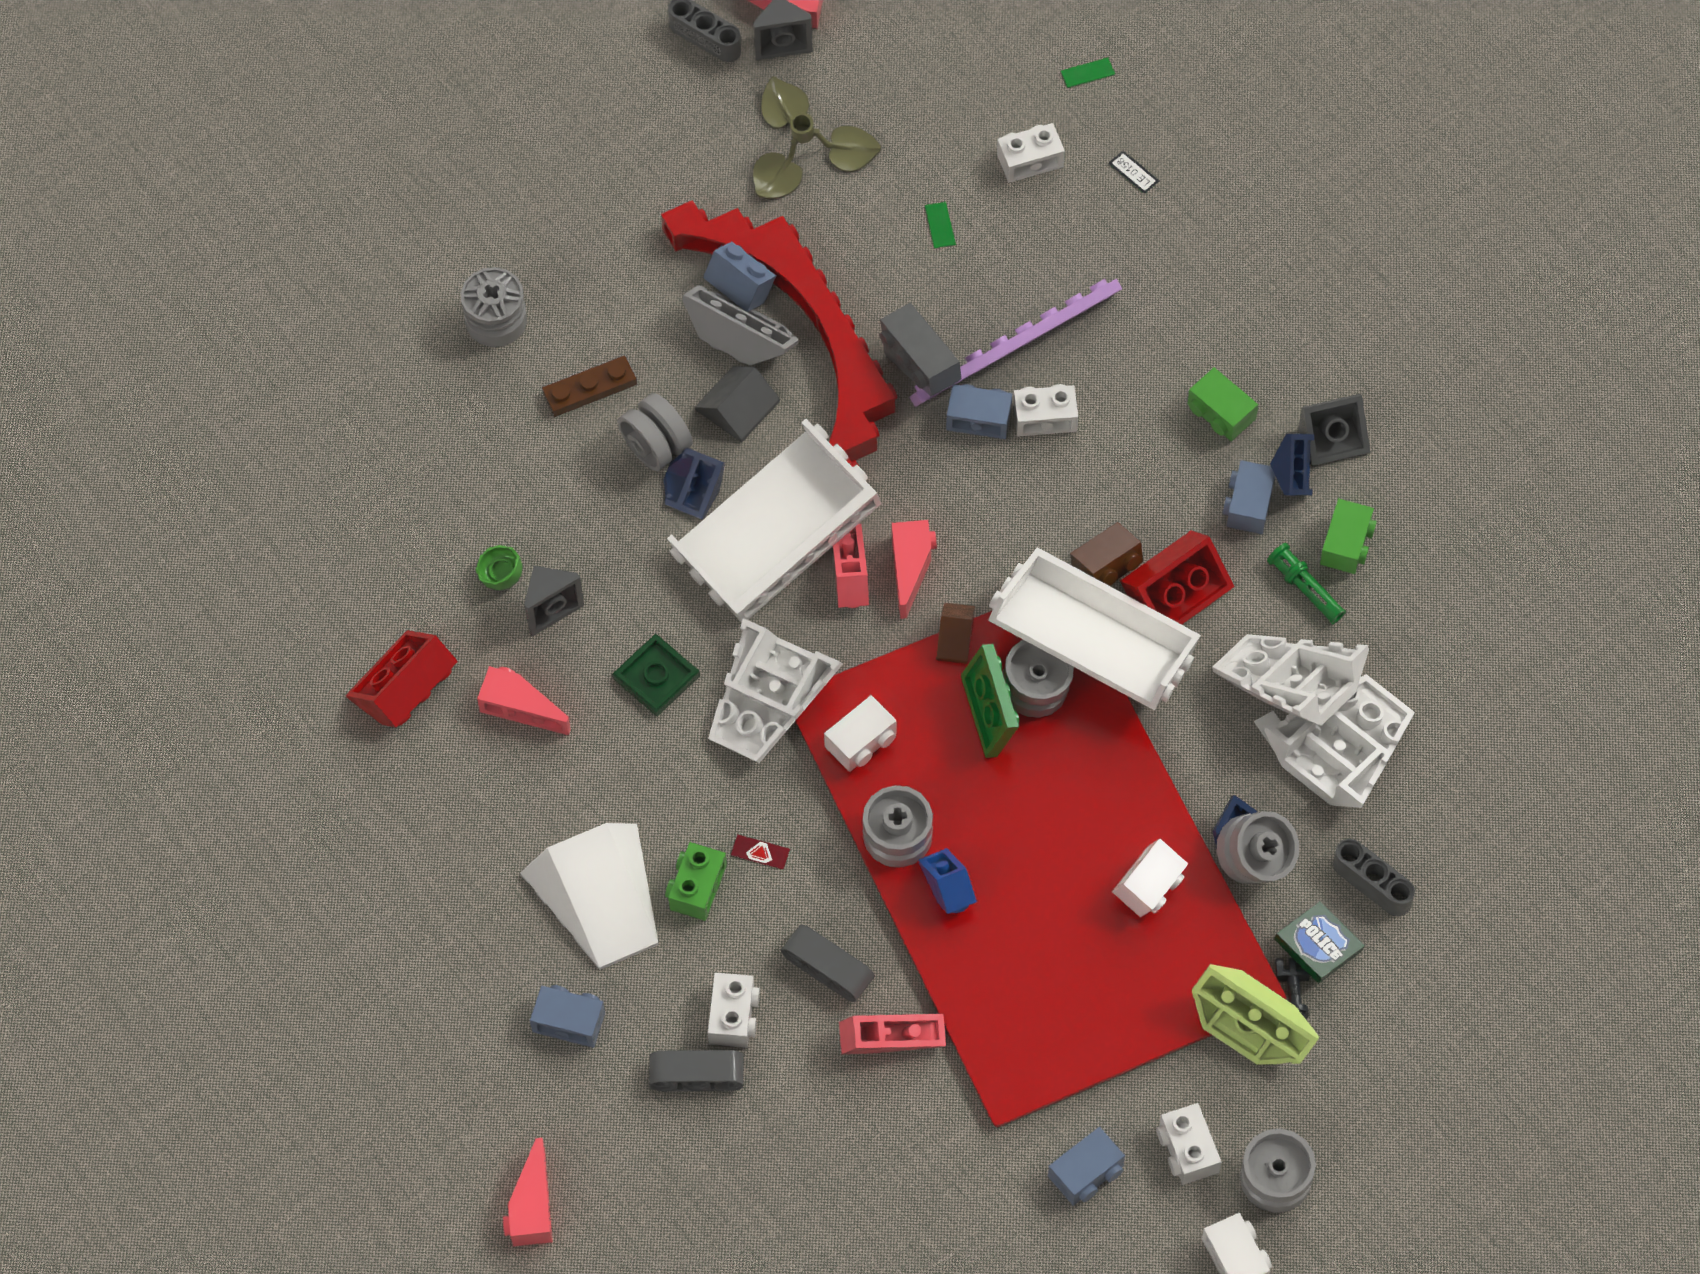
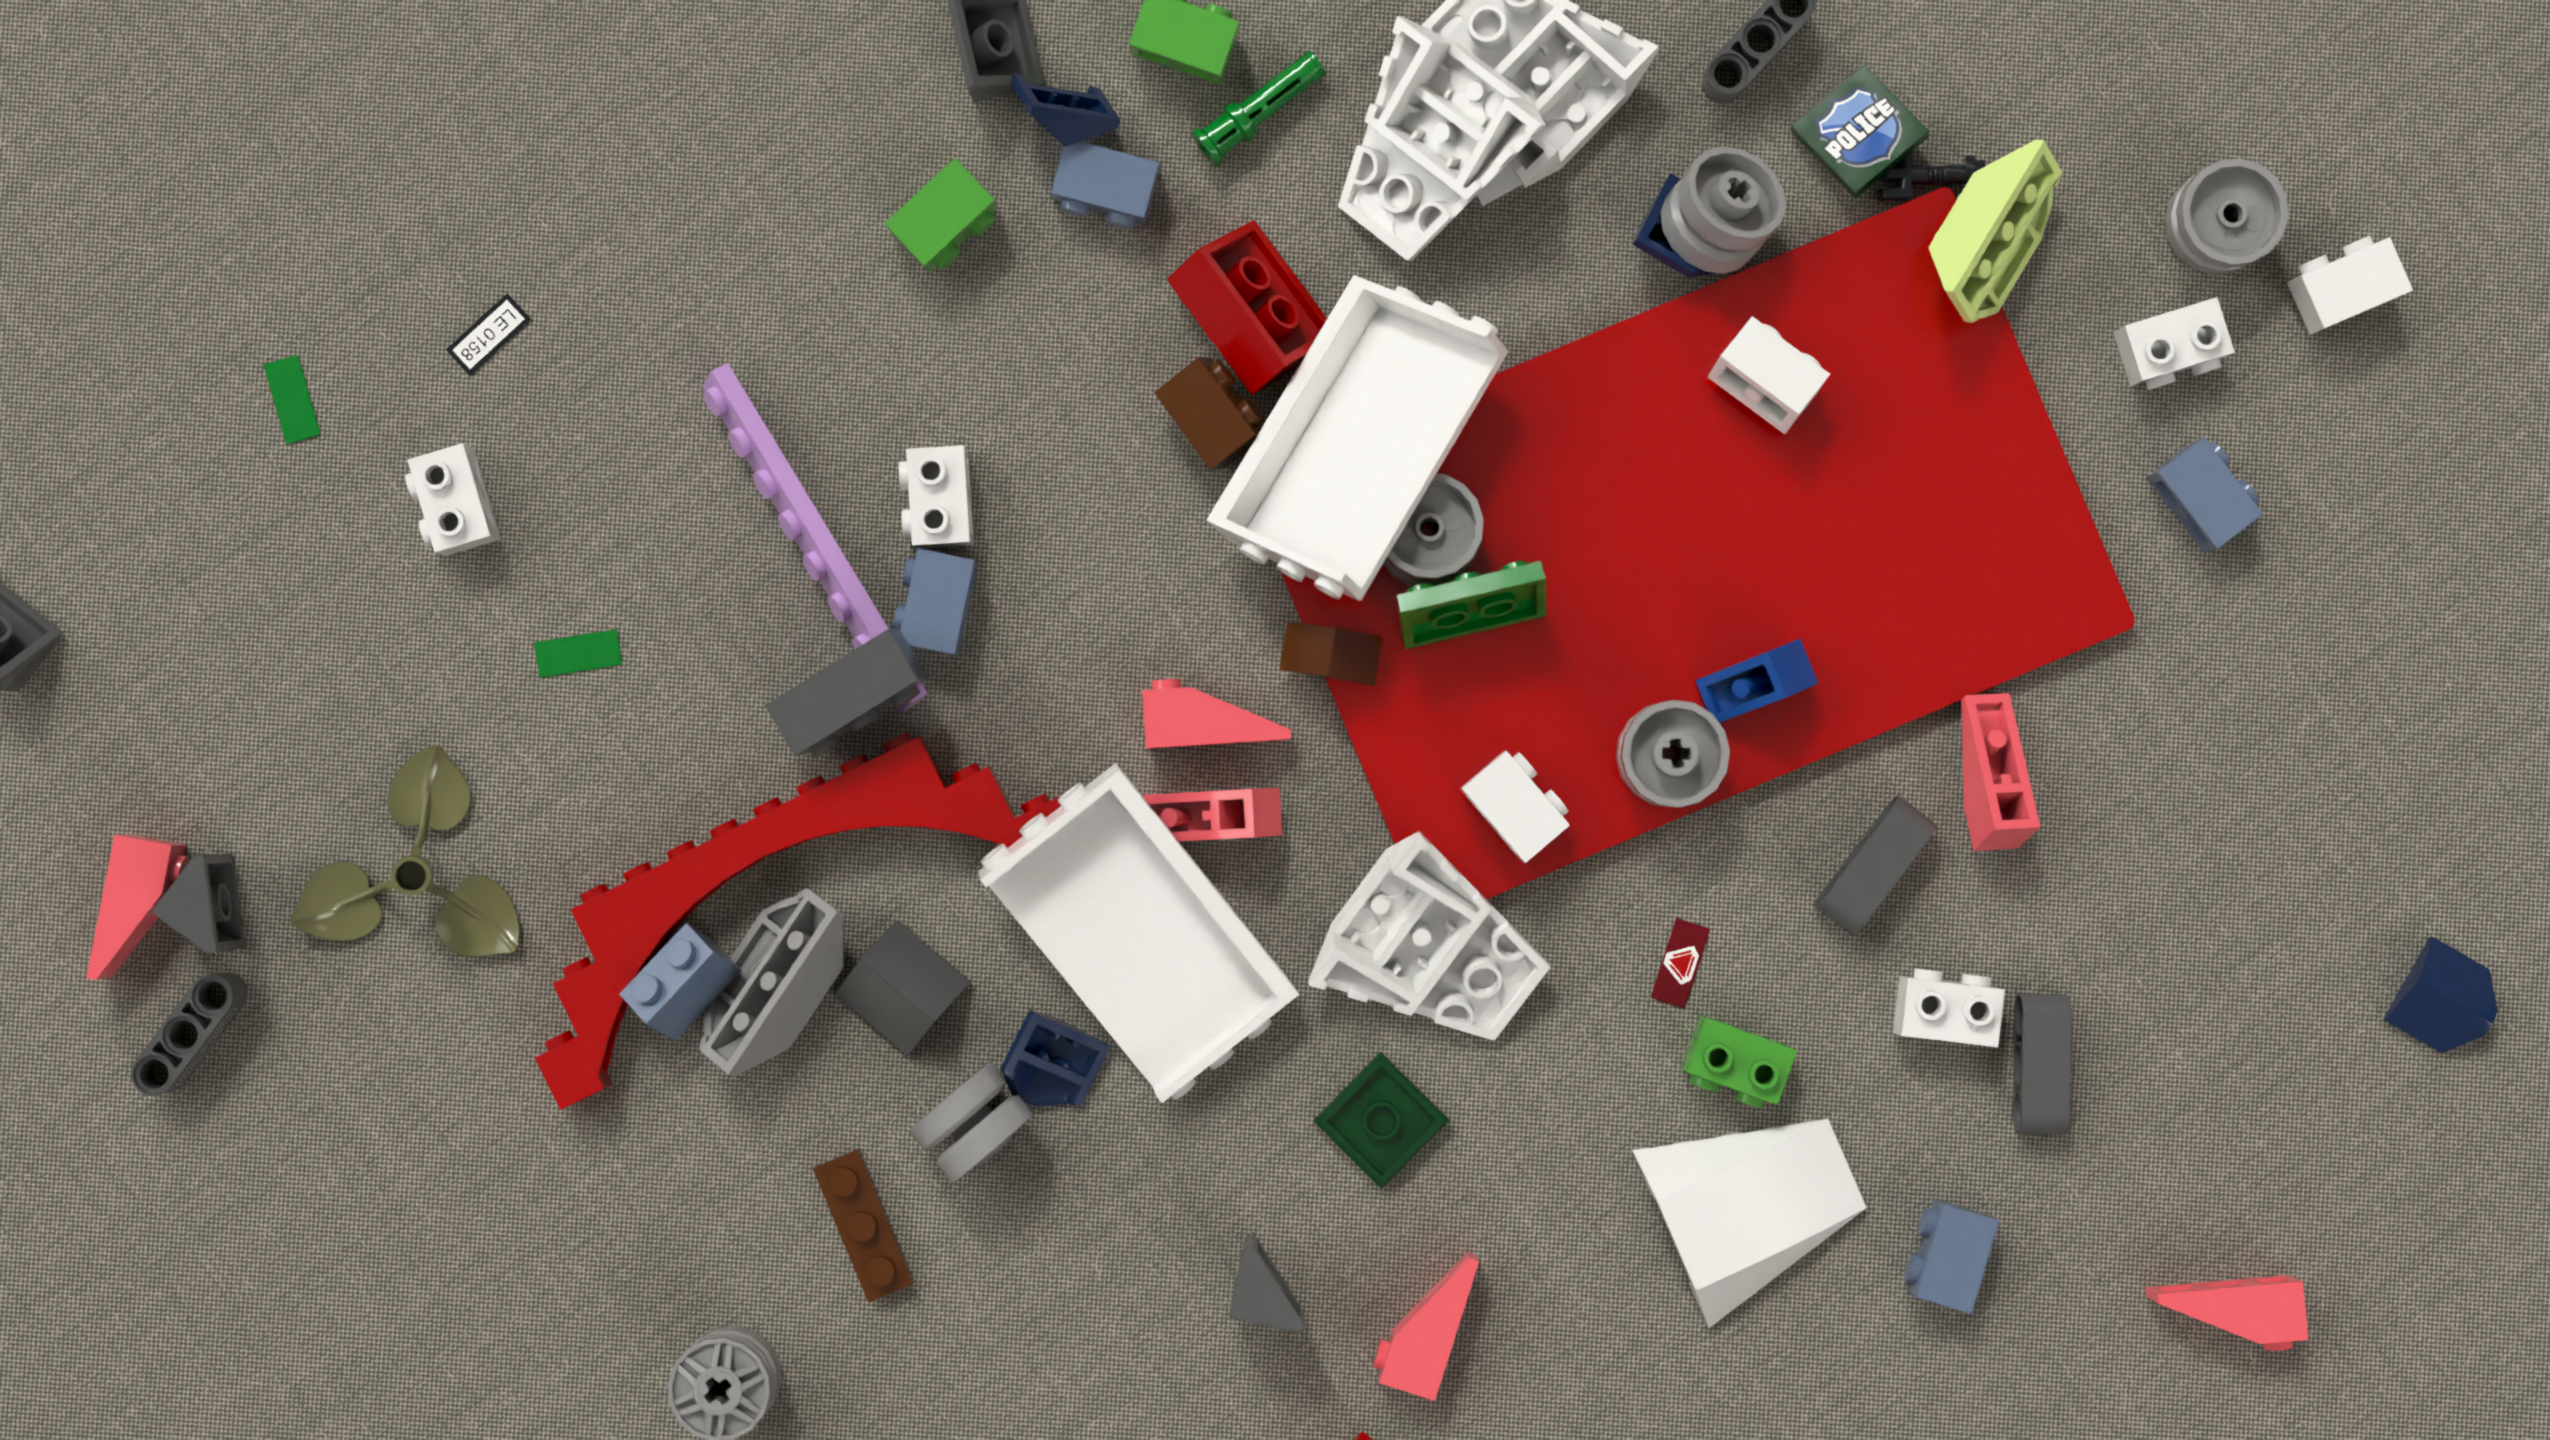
camera: 90 degrees left, 25 degrees up
(499, 567) = (1197, 1367): bright green hair -> none

